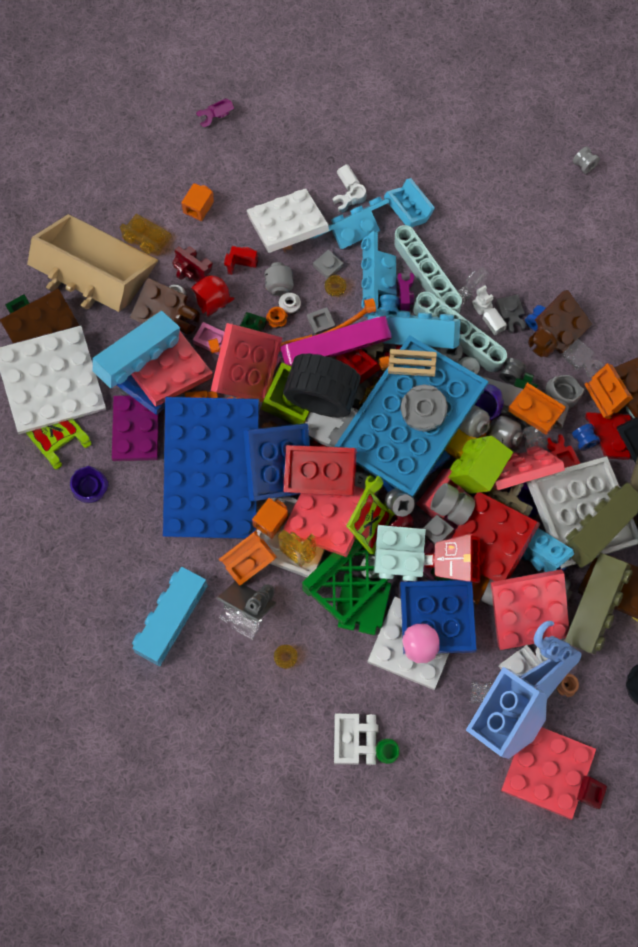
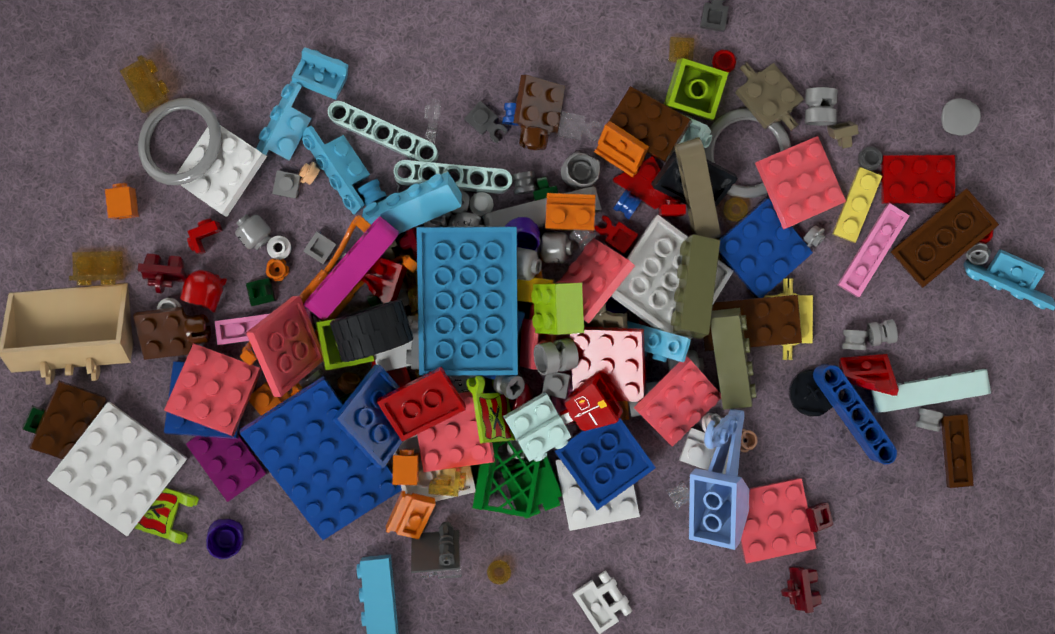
camera: 40 degrees left, 20 degrees up
(136, 349) = (178, 401): medium azure brick -> none
(218, 109) = (68, 92): magenta plate -> none
(274, 138) = (144, 84): none -> clear yellow bracket
(274, 162) = (149, 126): none -> light grey wedge
(335, 279) = (301, 202): clear yellow plate -> none
(350, 265) = (308, 173): none -> light nougat plate
(356, 191) = (263, 92): white bar -> none
(387, 751) = (634, 594): green plate -> none
(406, 297) = (381, 172): magenta plate -> none
(411, 362) = (418, 264): tan tile -> none
(421, 643) = (607, 495): bright pink hair -> none
(424, 408) = (476, 290): light grey tile -> none
(484, 306) = (470, 139): white bar -> none
(534, 844) = (800, 591): none -> dark red hips
(621, 459) = (672, 208): none -> red plate

